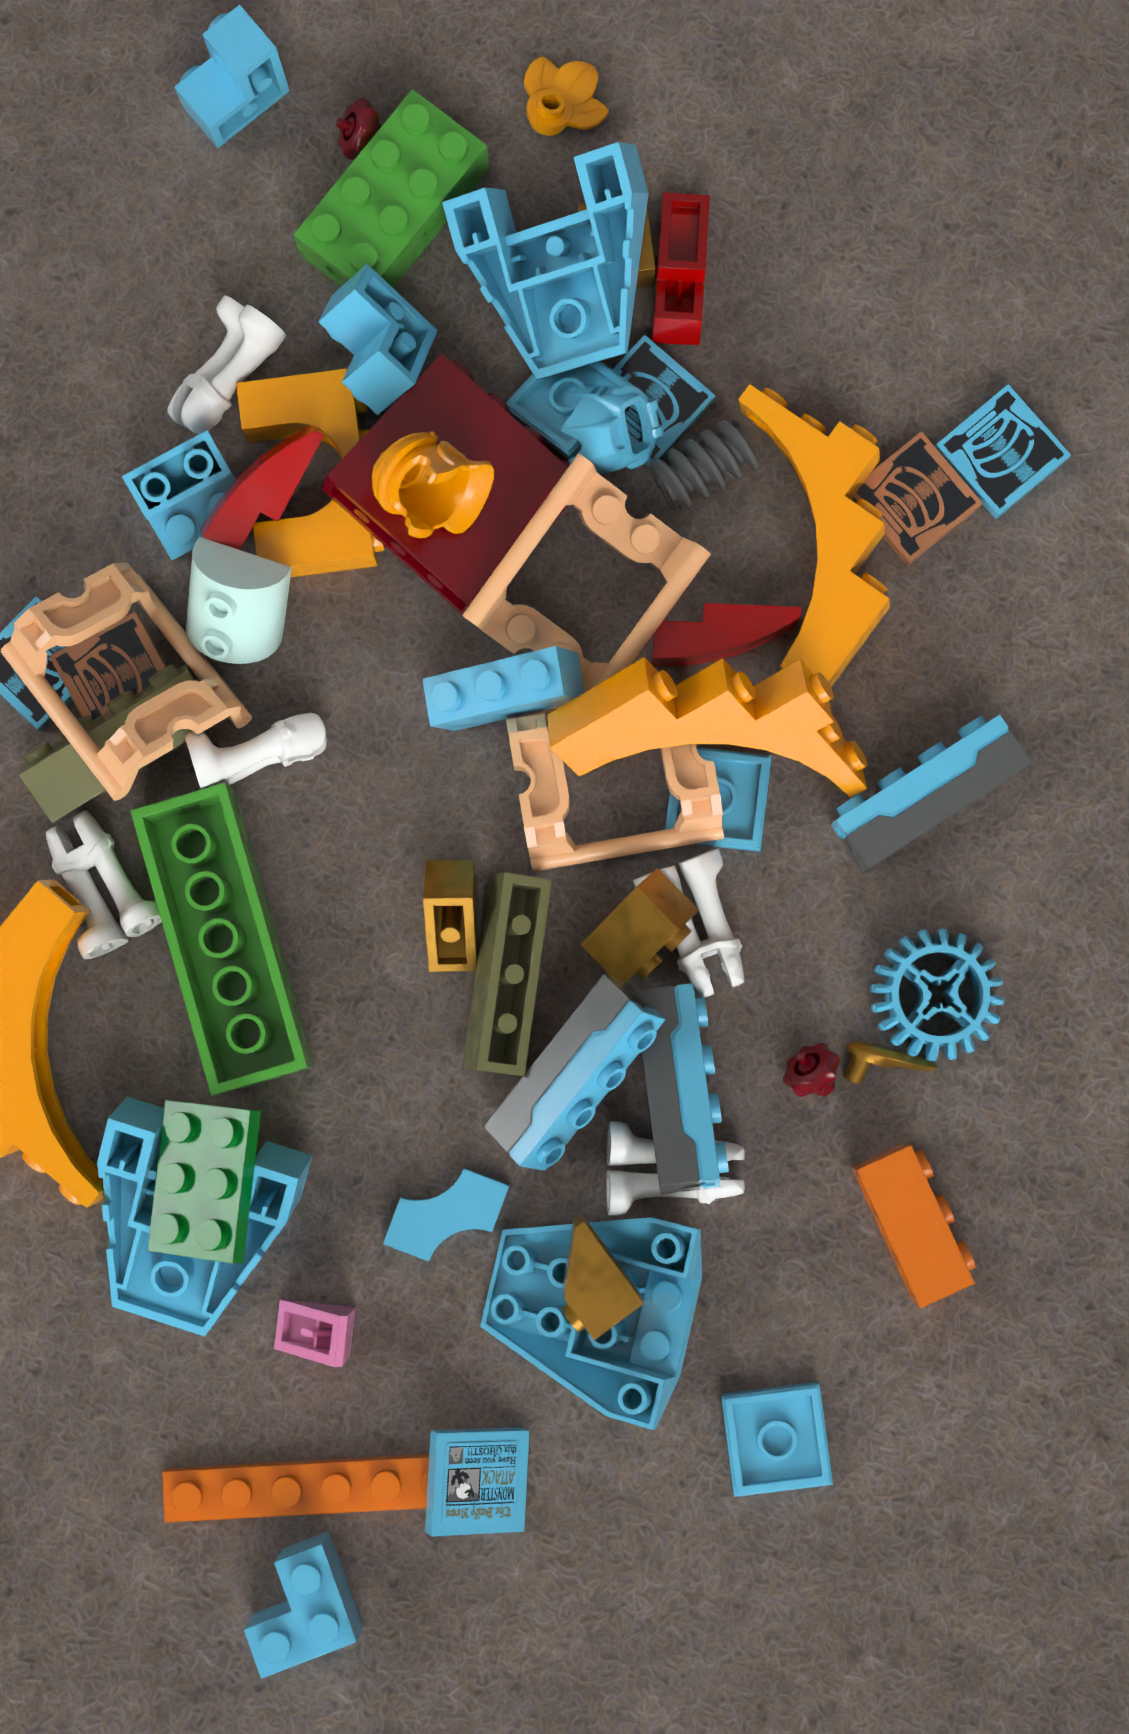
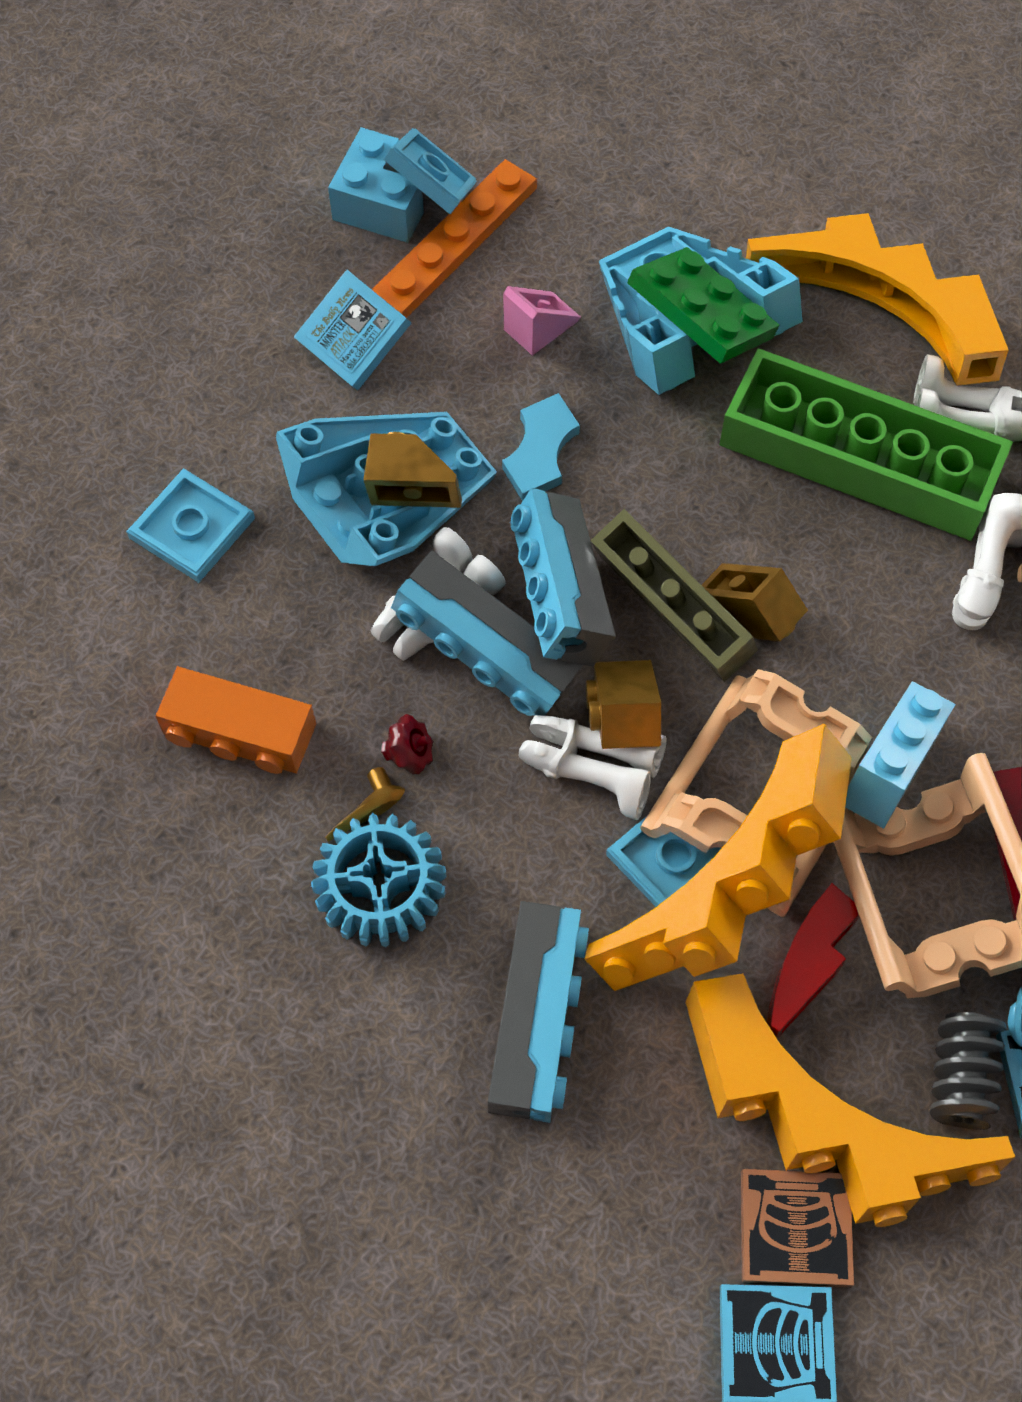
camera: 125 degrees right, 20 degrees down
(253, 1566) = (430, 170): none -> medium azure tile

